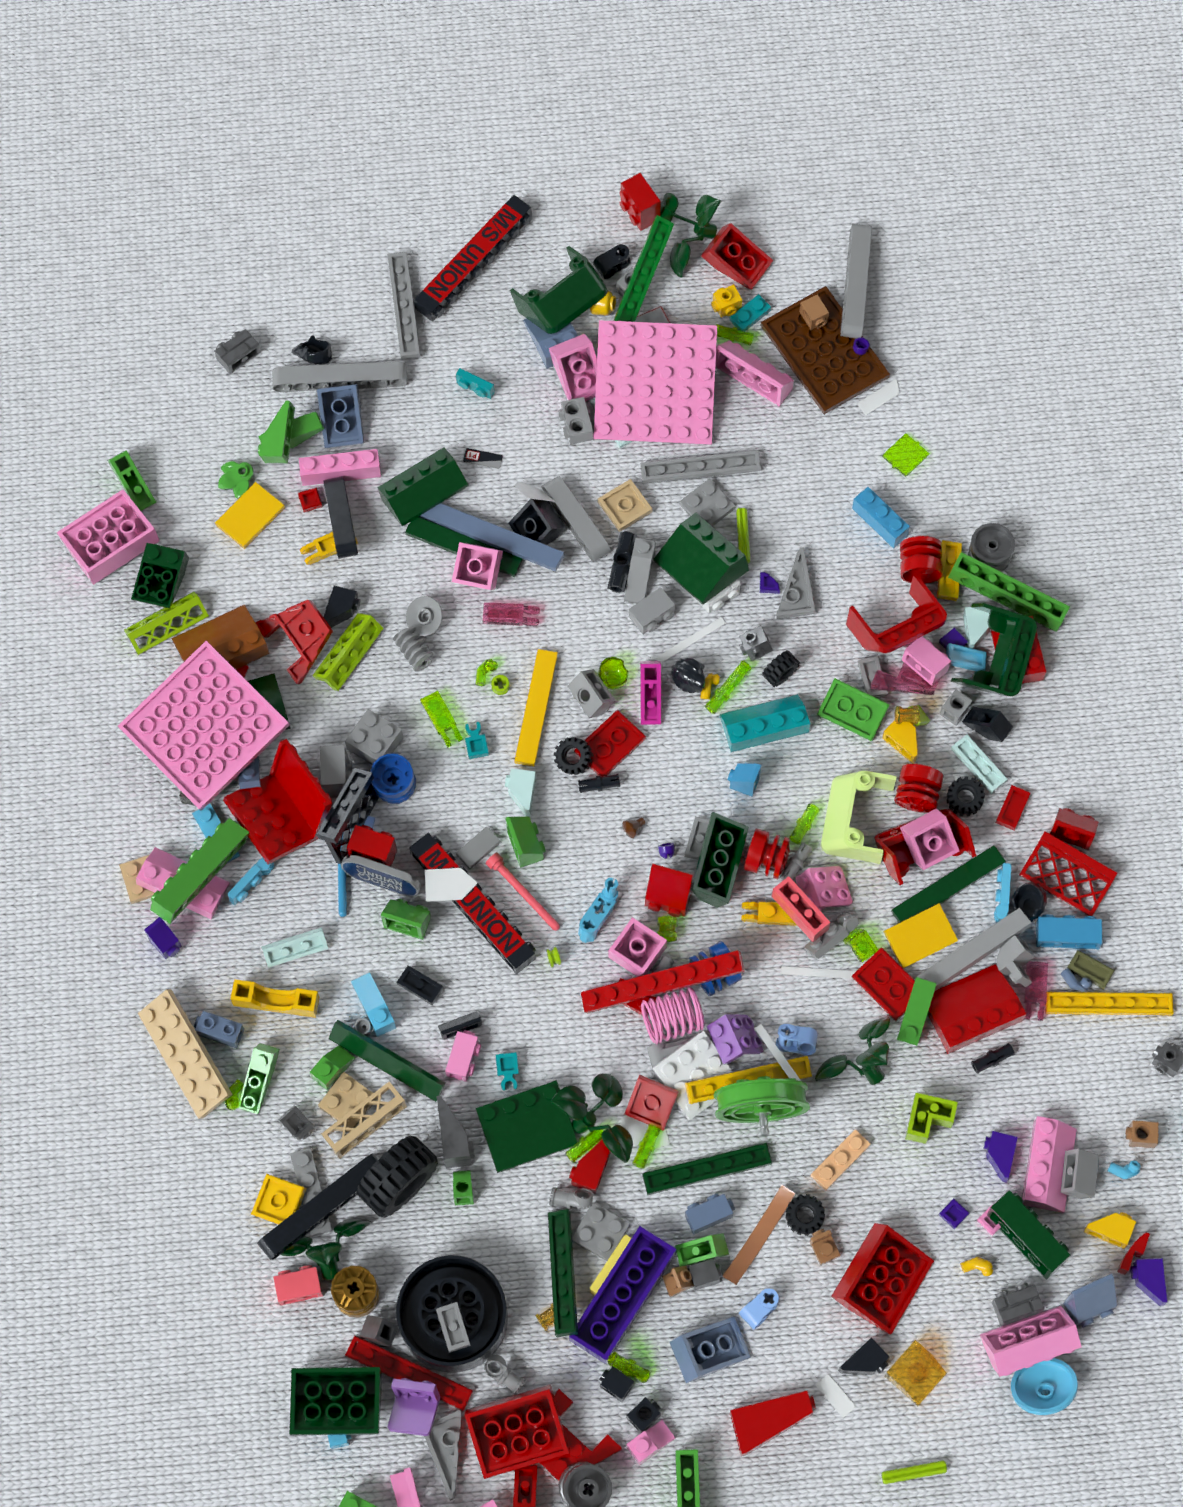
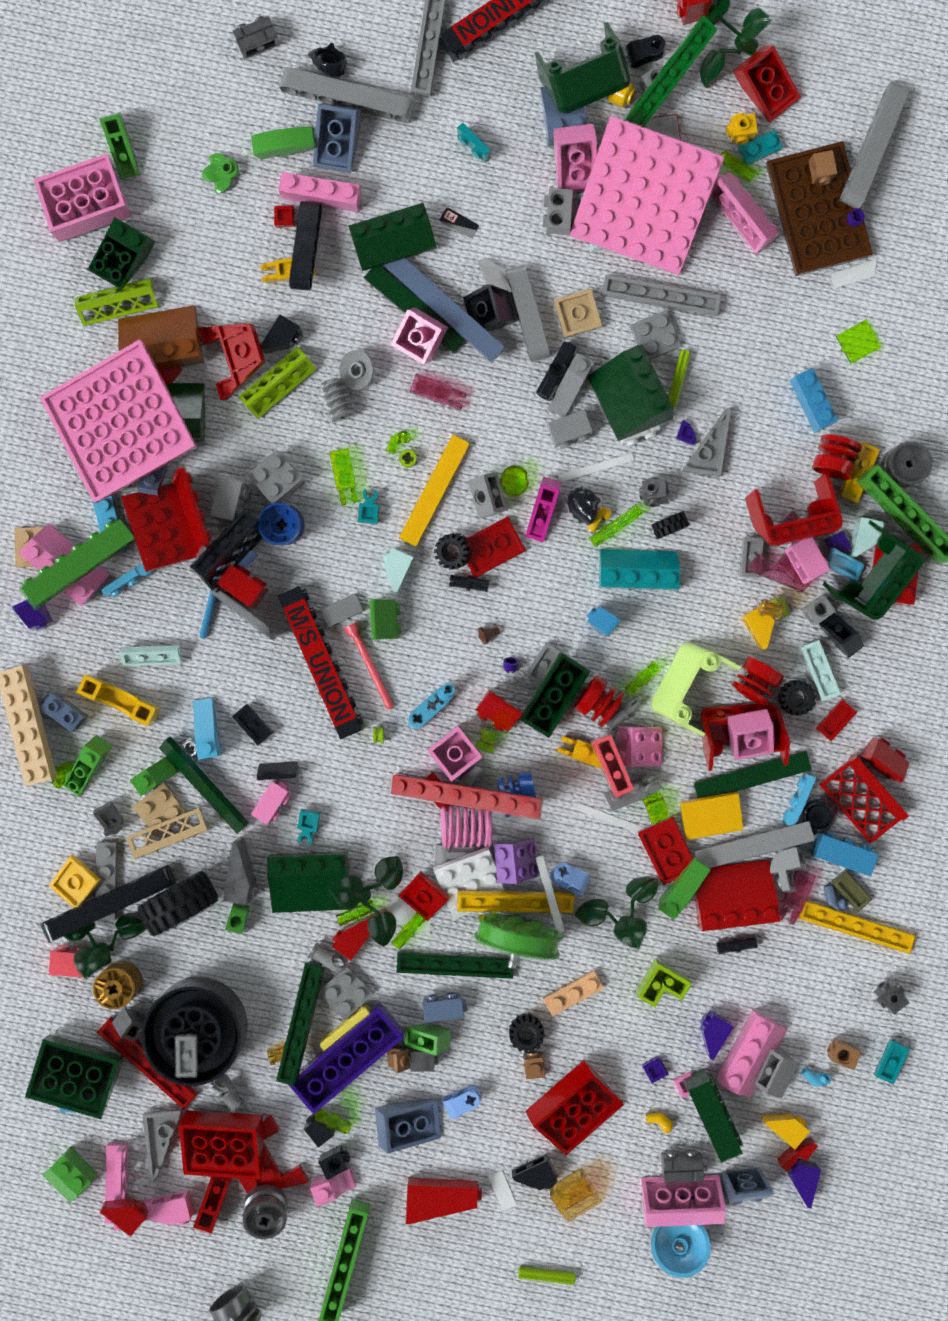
camera: 20 degrees right, 20 degrees up
(250, 515) = (223, 215): yellow tile -> none
(277, 438) = (266, 144): bright green slope -> none
(406, 918) = (256, 659): bright green slope -> none
(413, 1407) = (140, 1100): medium lavender bracket -> none
(447, 884) = (302, 641): white sticker -> none
(759, 1235) = (478, 1038): nougat sticker -> none
(853, 709) = (723, 583): bright green tile -> none

